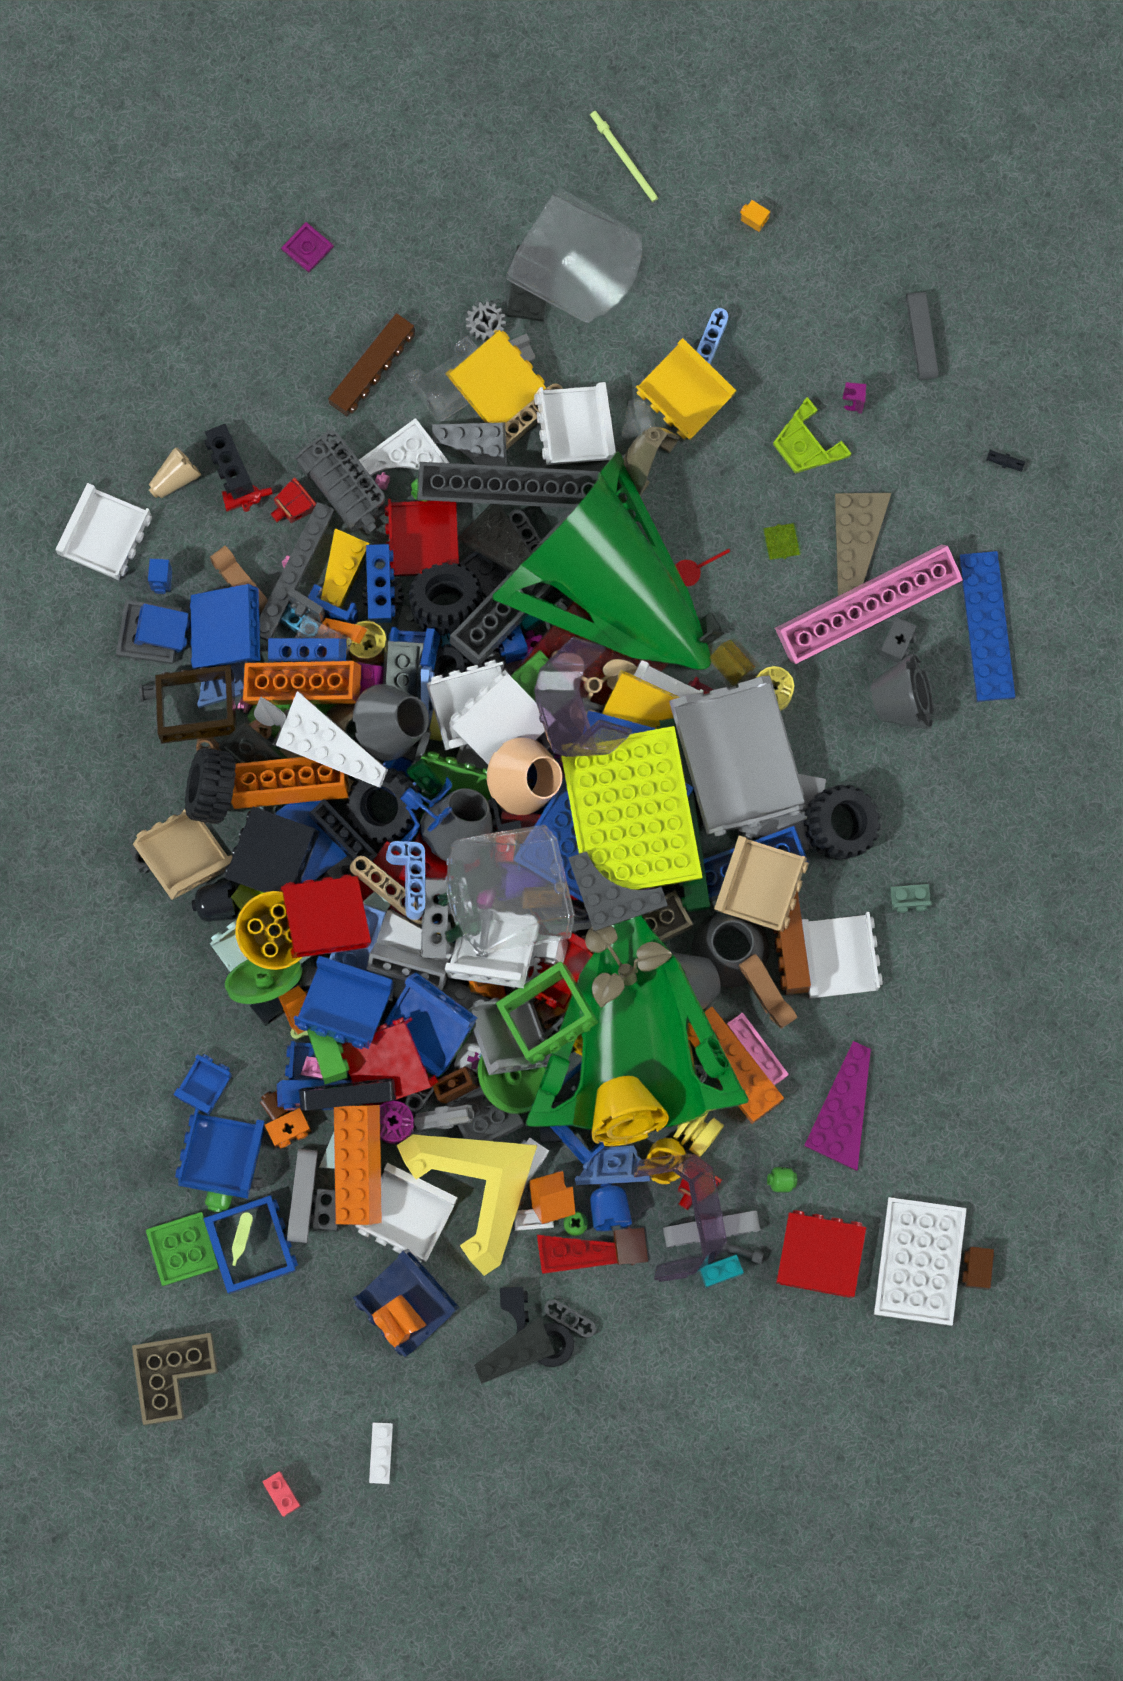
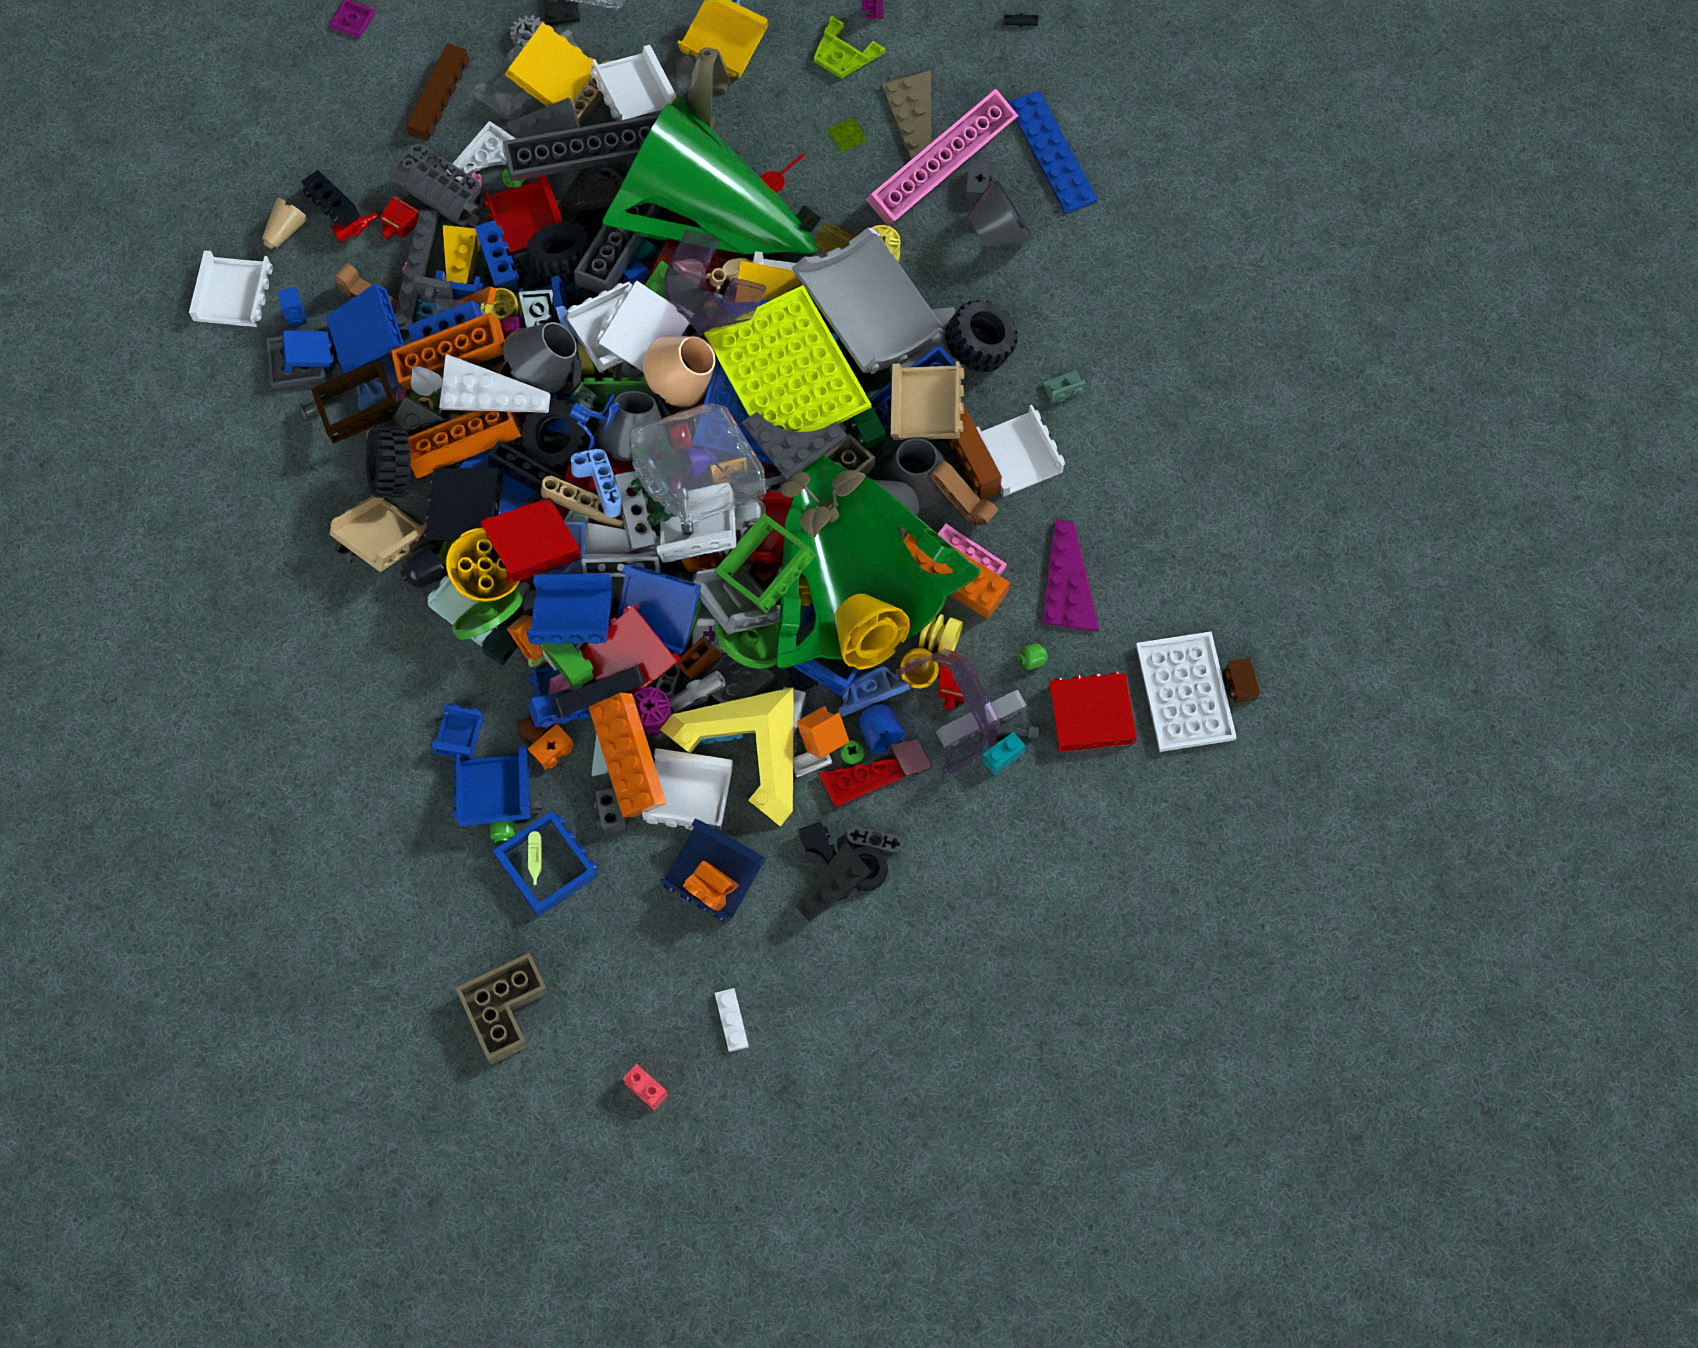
camera: 15 degrees left, 10 degrees down
(182, 1249) = (480, 887): bright green plate -> none
(302, 1195) = (583, 802): light grey beam -> none

